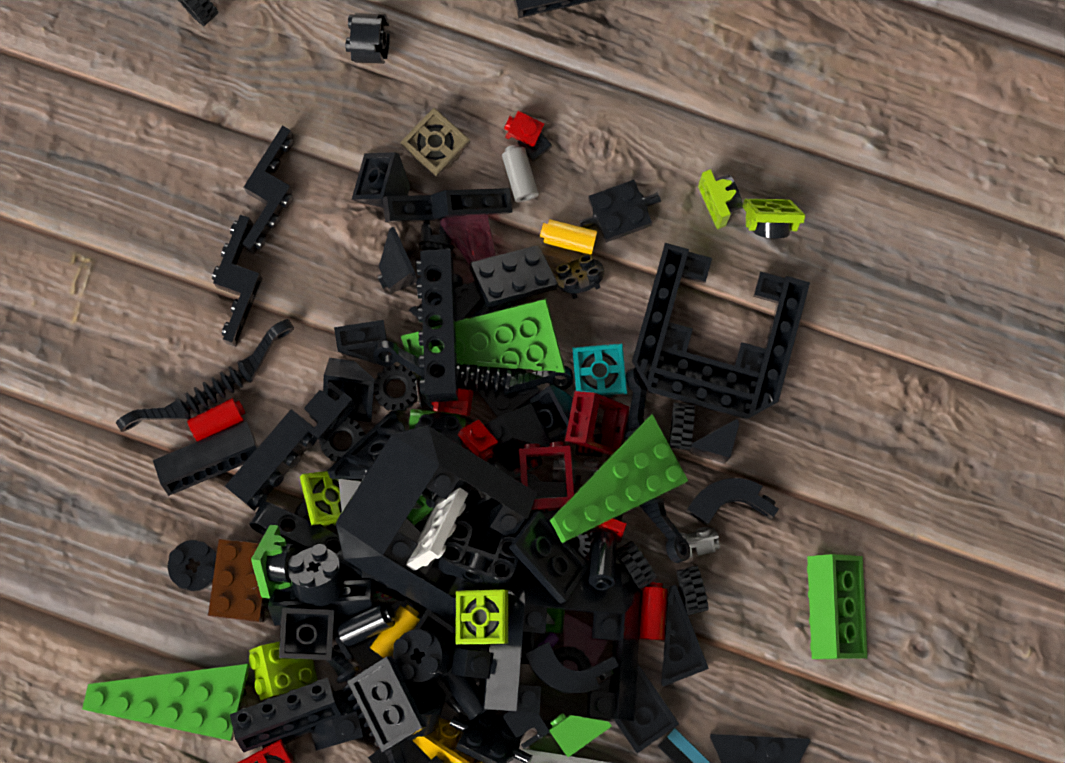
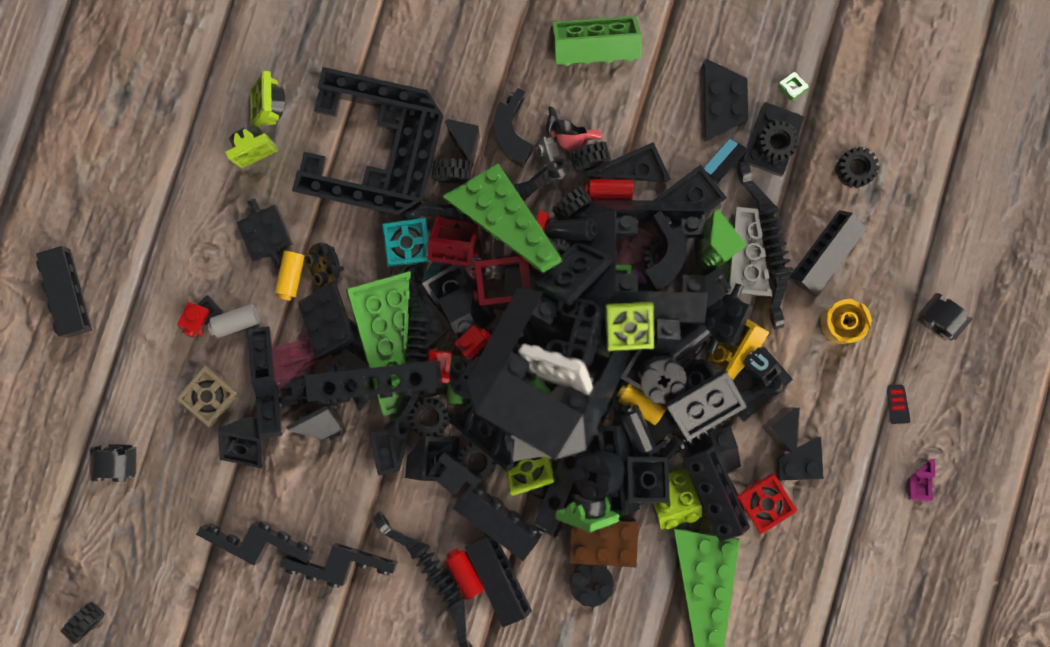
camera: 90 degrees left, 5 degrees up
(722, 567) = (567, 134): none -> hair

